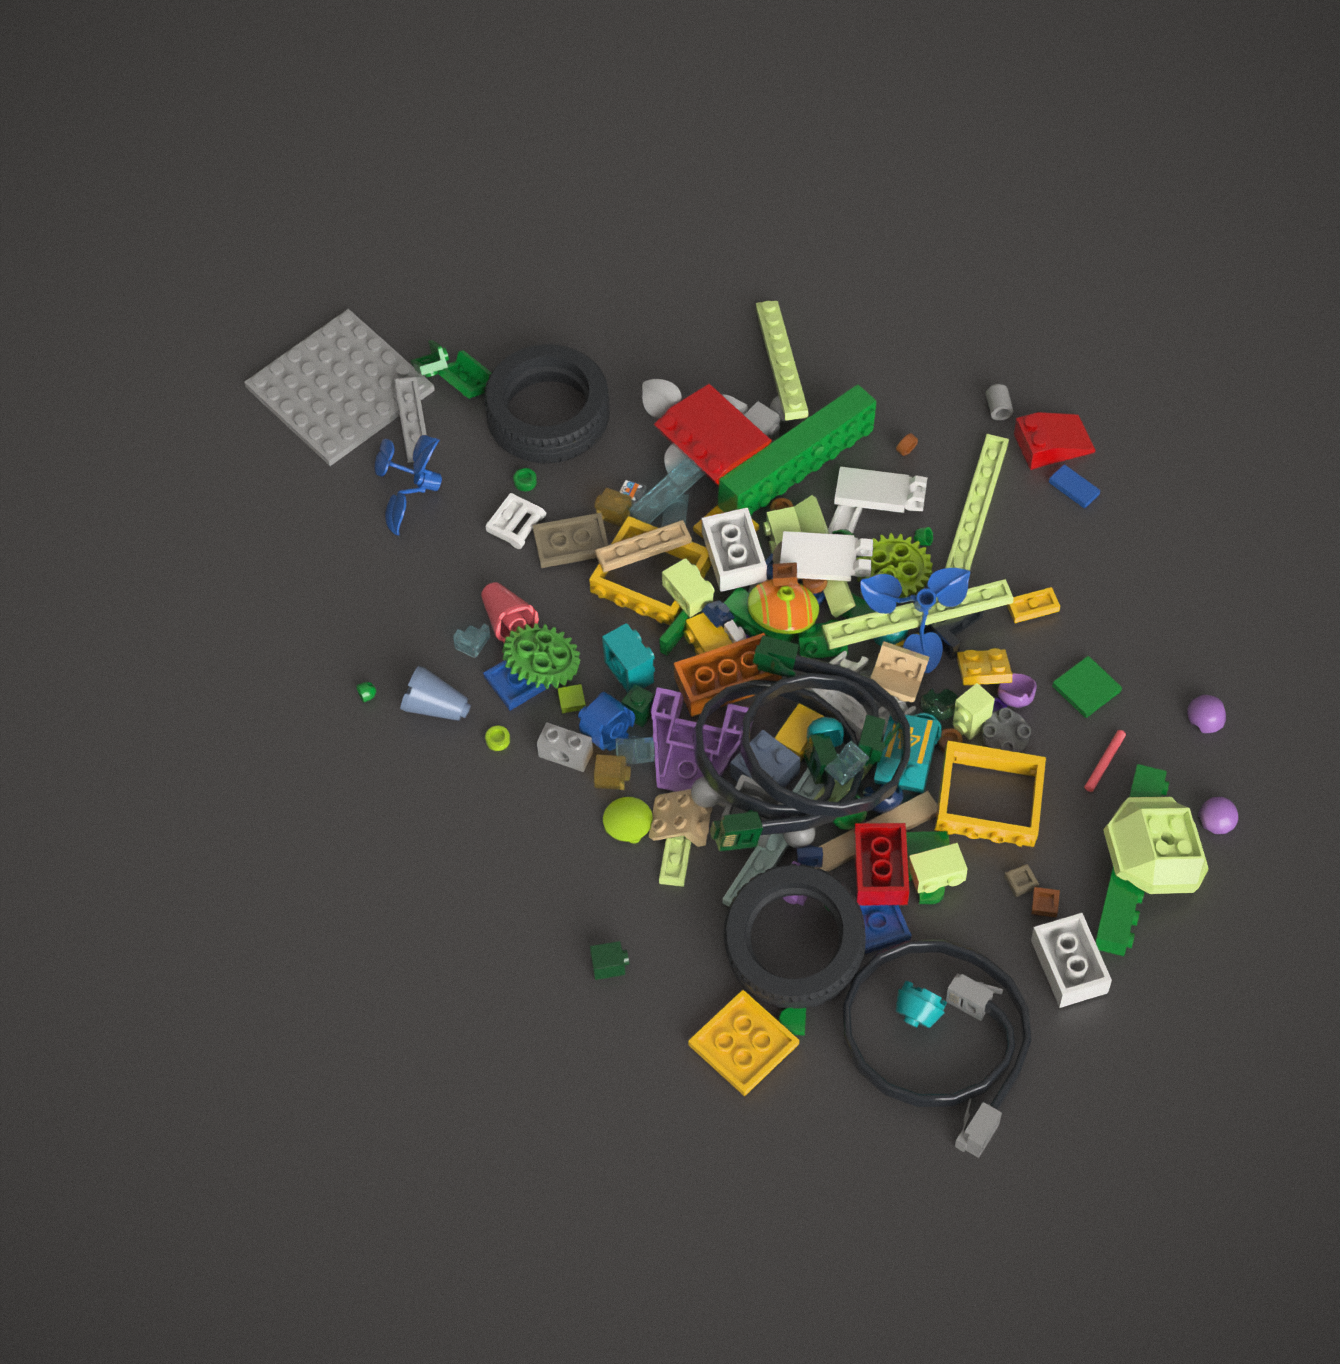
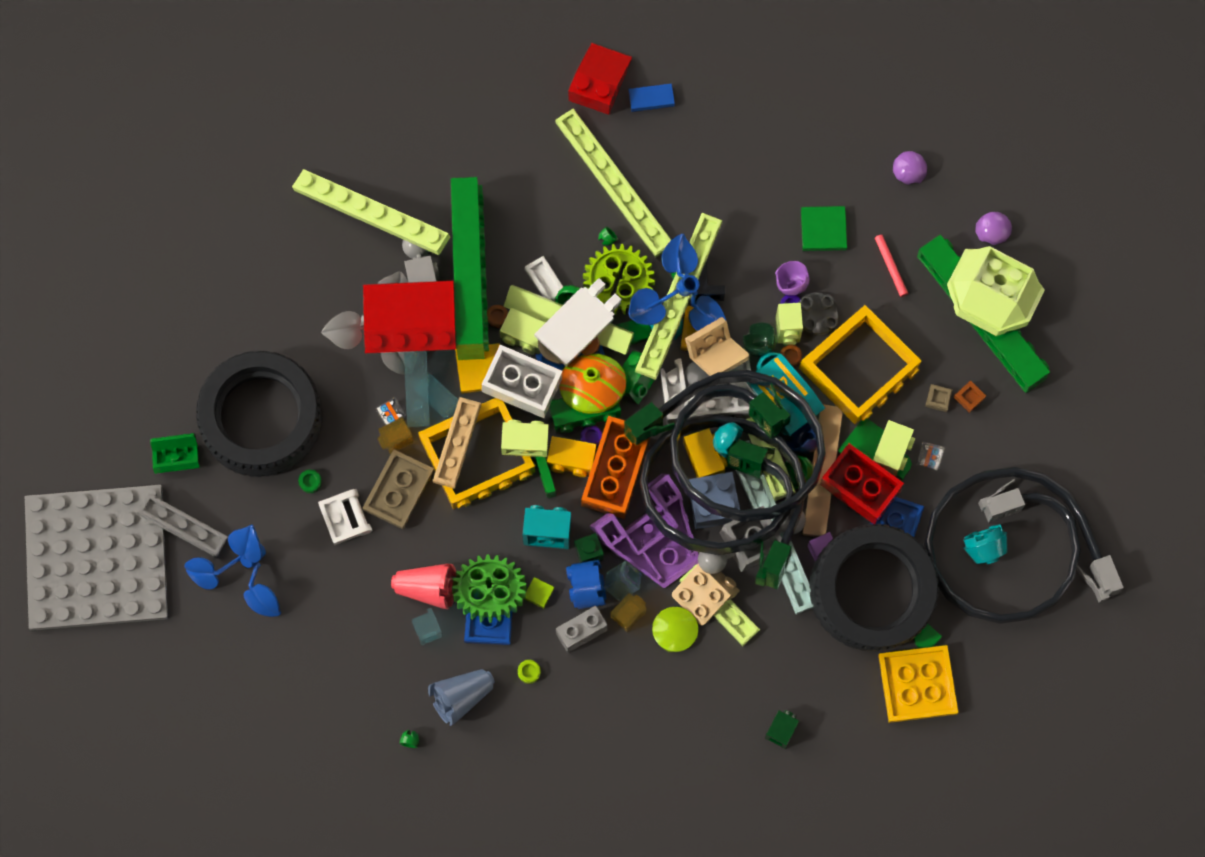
camera: 55 degrees left, 15 degrees up
(431, 363) = (140, 470): green bracket -> none
(718, 613) = (562, 434): dark blue plate -> none
(734, 633) = (589, 435): white plate -> none
(785, 574) = (576, 362): dark orange plate -> none
(810, 856) = (814, 526): dark blue plate -> none
(847, 763) = (775, 446): clear light blue panel -> none
(880, 490) = (541, 235): white tile -> none
(907, 444) = (518, 182): dark orange tile -> none
(963, 910) = (930, 455): none -> clear tile
(984, 667) = (755, 285): yellow plate -> none
(999, 402) = (536, 88): light grey brick -> none
(1033, 605) = (730, 208): yellow plate -> none
(1071, 960) = (1030, 417): white brick -> none

